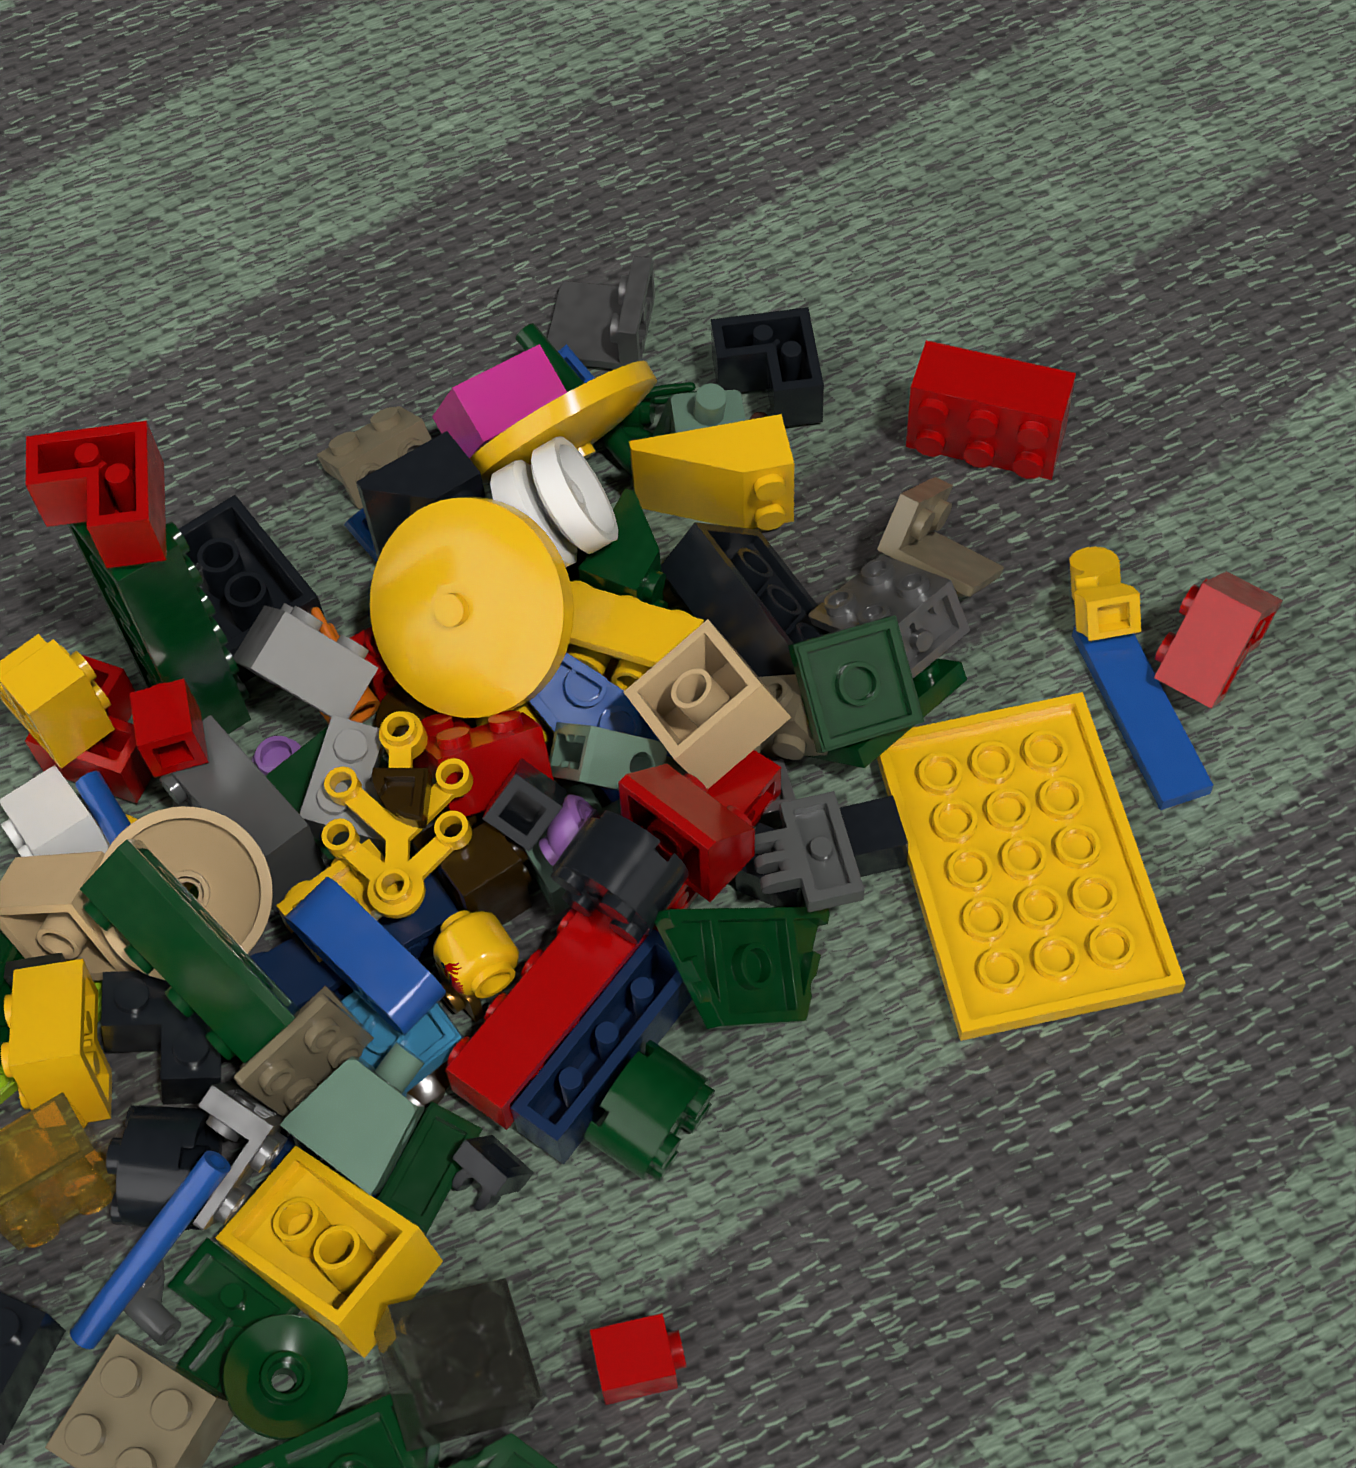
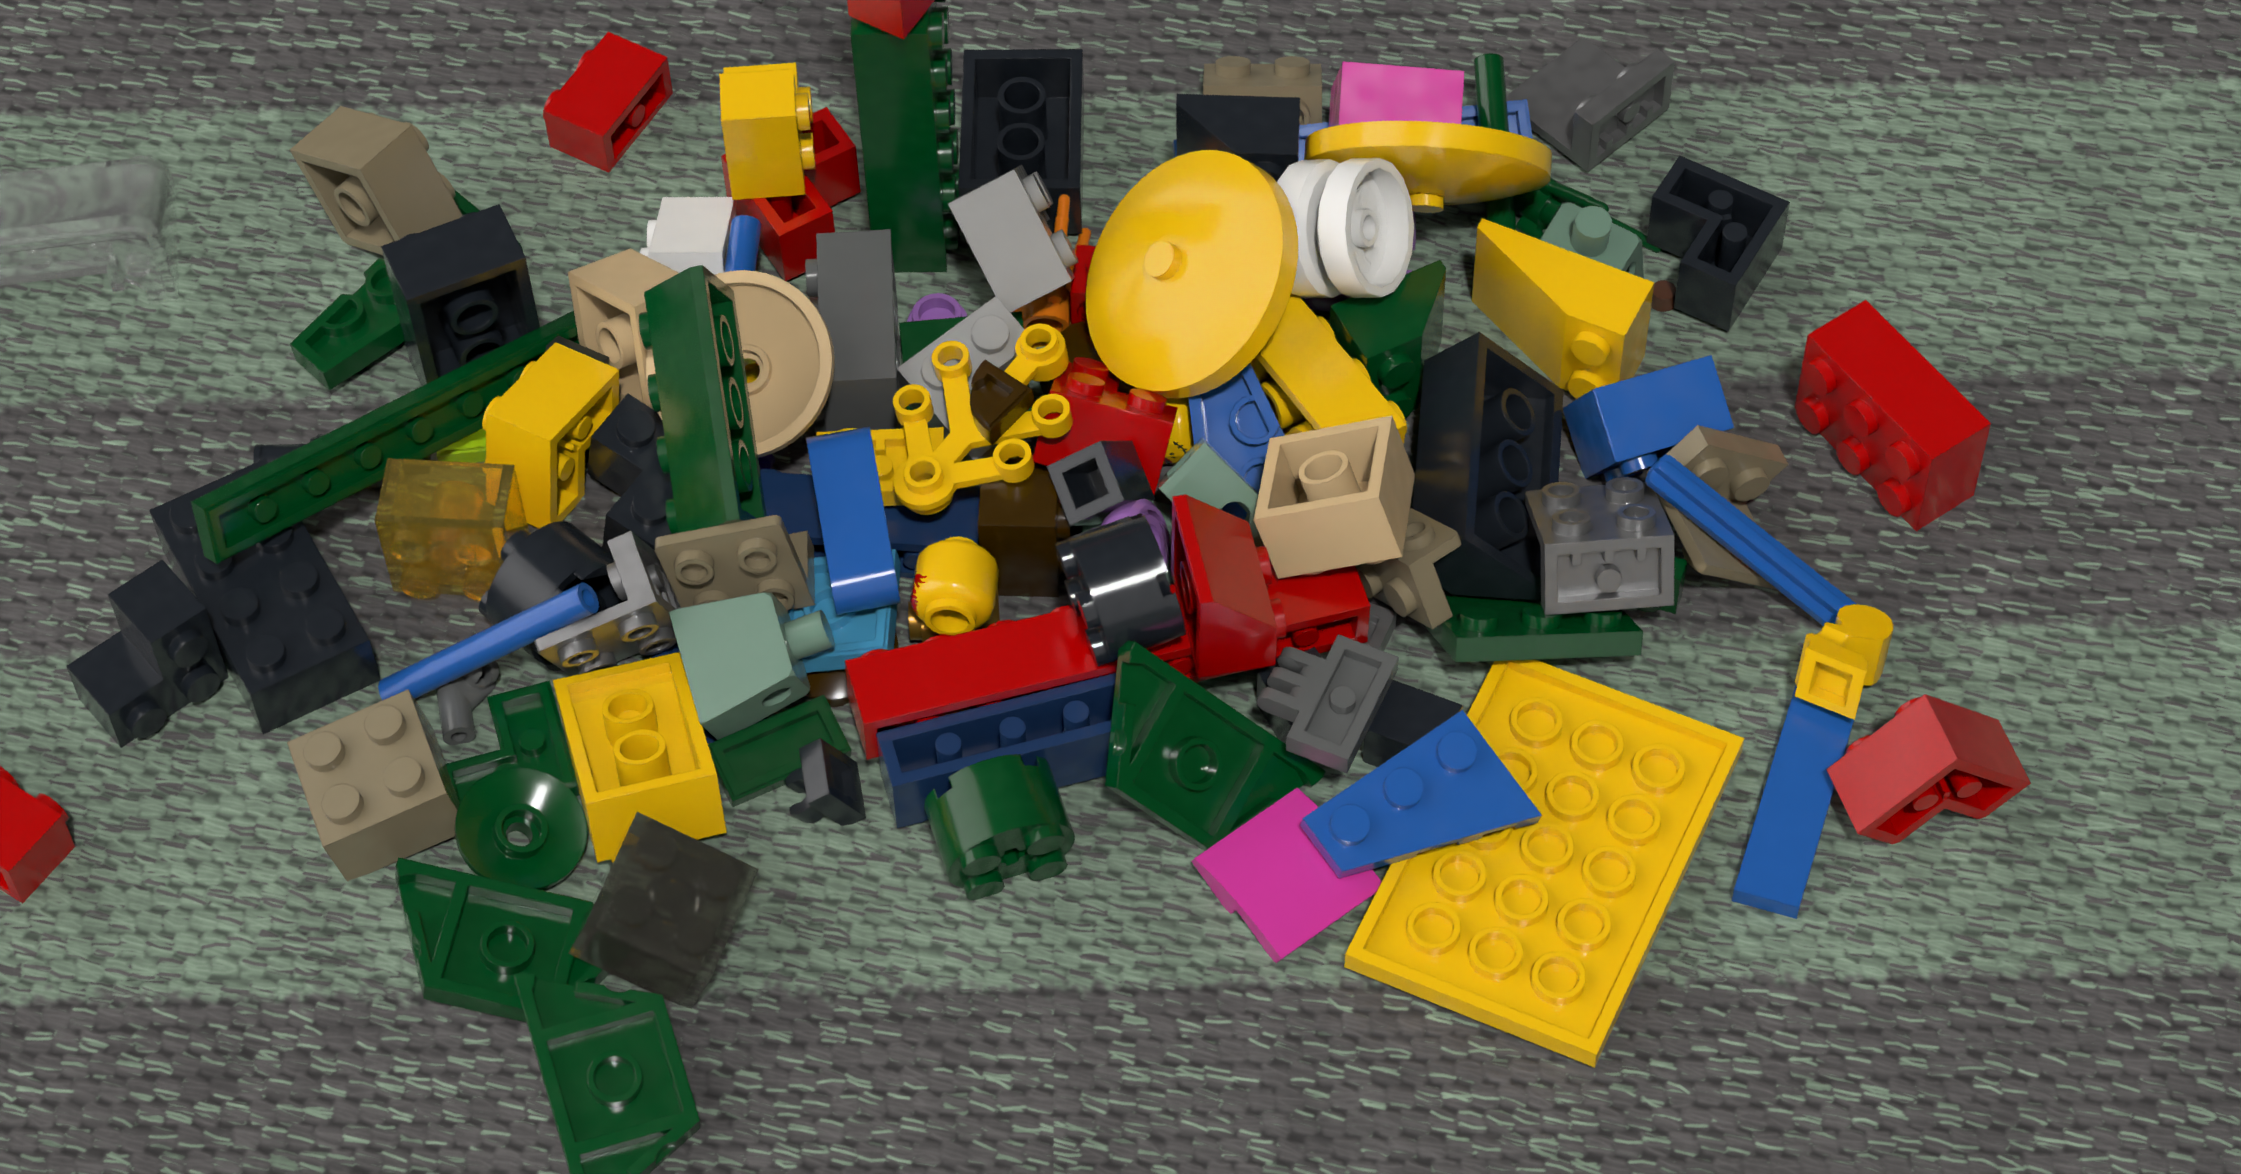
camera: 35 degrees right, 5 degrees down
(168, 727) = (839, 213): red brick -> none
(637, 1358) = (818, 1018): red brick -> none
(842, 513) = (1639, 419): none -> blue brick
(856, 683) = (1496, 570): dark green tile -> none
(868, 1000) = (1280, 878): none -> dark pink slope
(925, 886) = (1421, 799): none -> blue wing
(978, 554) = (1746, 540): none -> blue axle

